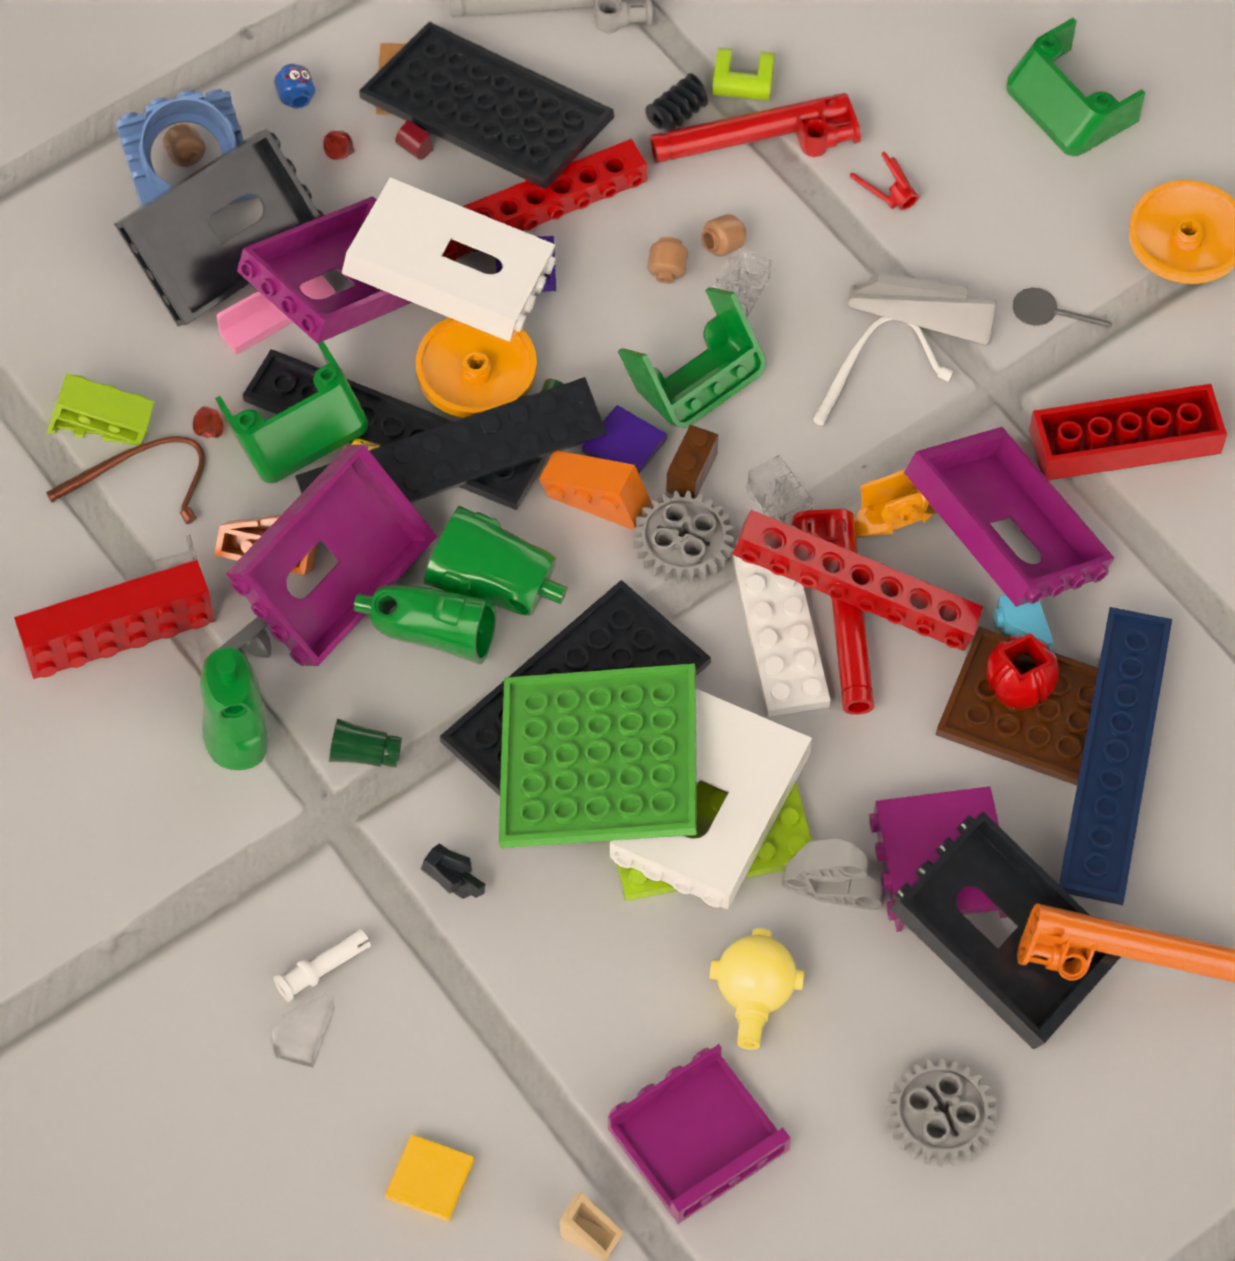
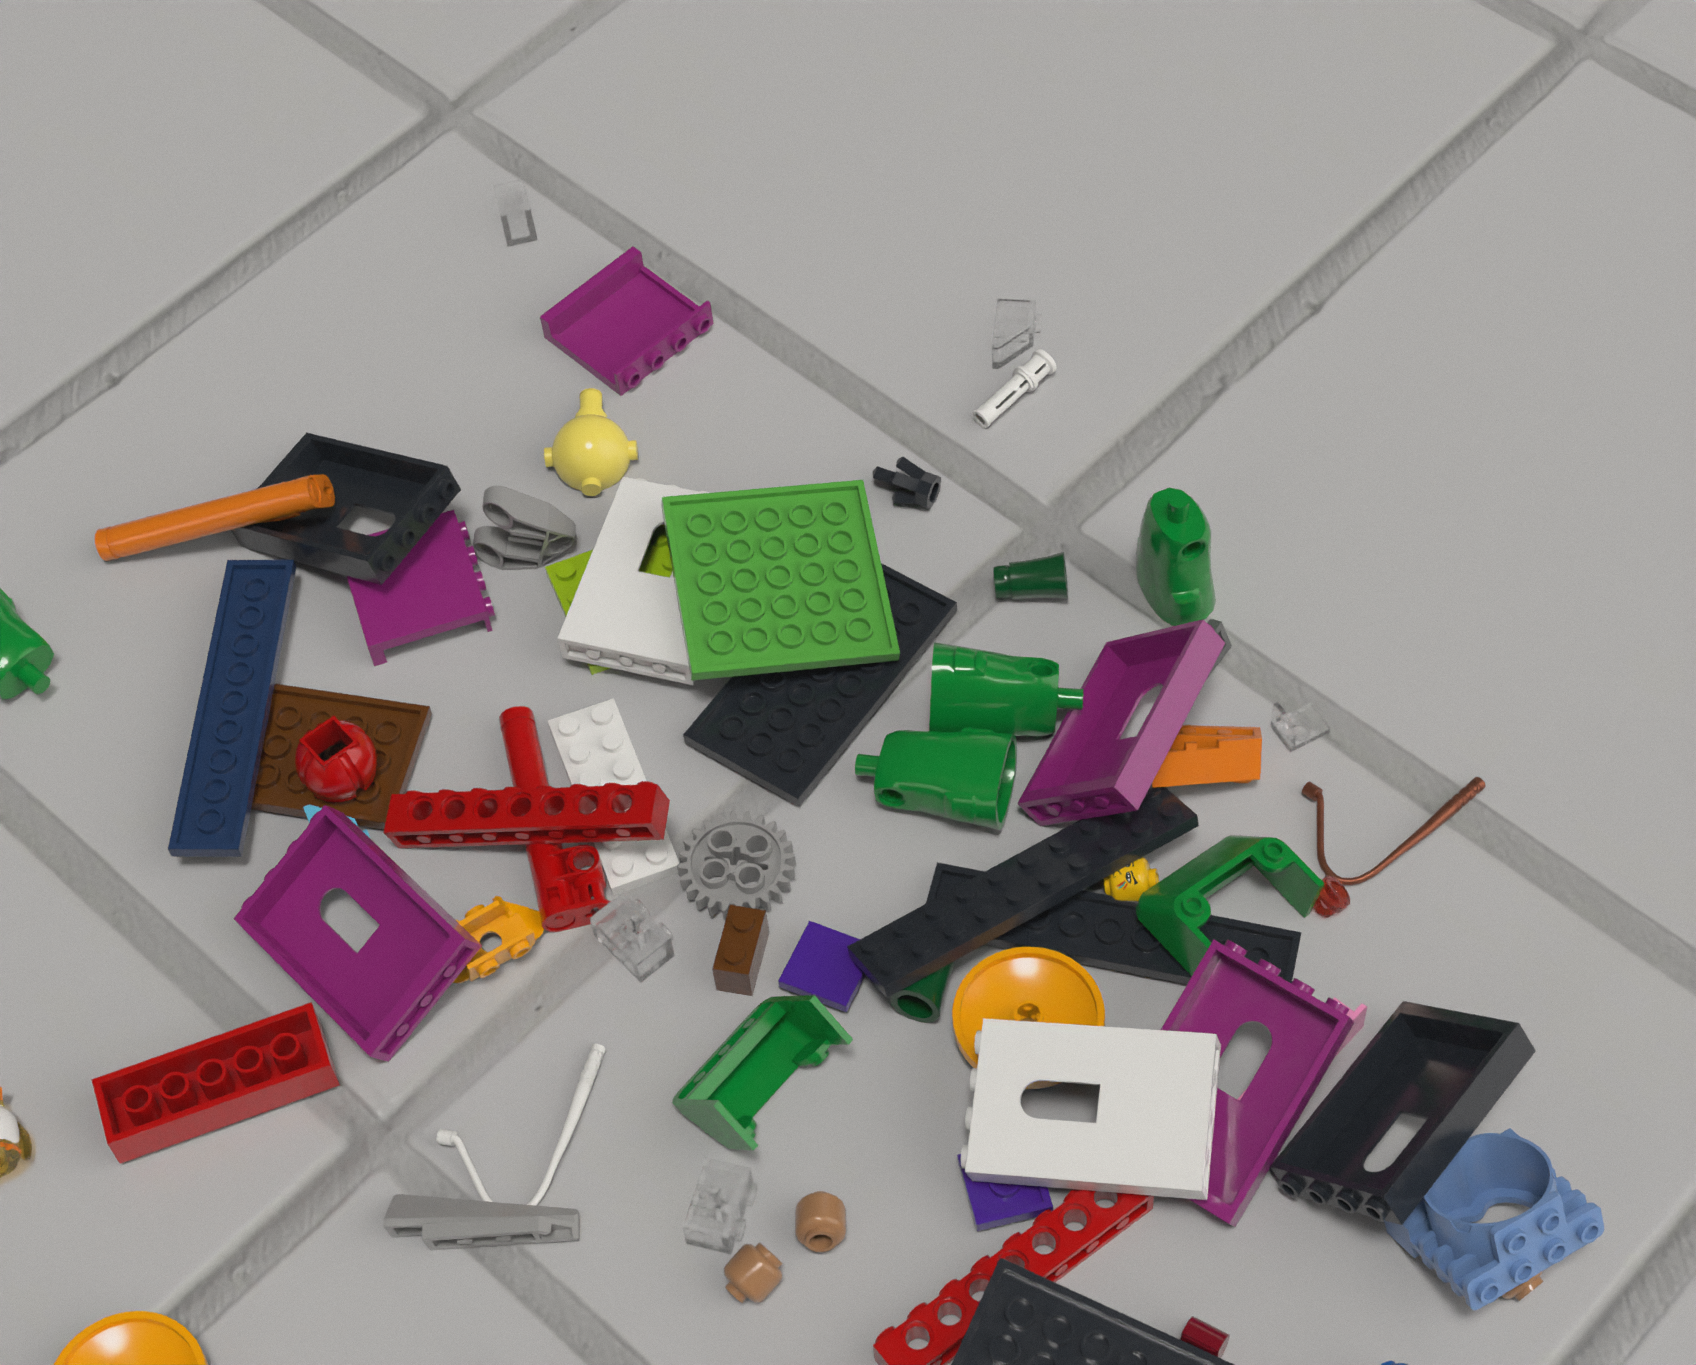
camera: 175 degrees right, 5 degrees down
(100, 410) = (1461, 872): lime wedge -> none
(115, 619) = (1340, 637): red brick -> none
(338, 145) = (1305, 1314): clear red tile -> none
(430, 1177) = (864, 253): yellow tile -> none
(589, 1227) = (715, 237): tan slope -> none
(596, 486) = (848, 892): orange wedge -> none
(968, 1100) = (389, 391): light grey gear -> none
(1039, 307) = (332, 1267): dark grey piece -> none

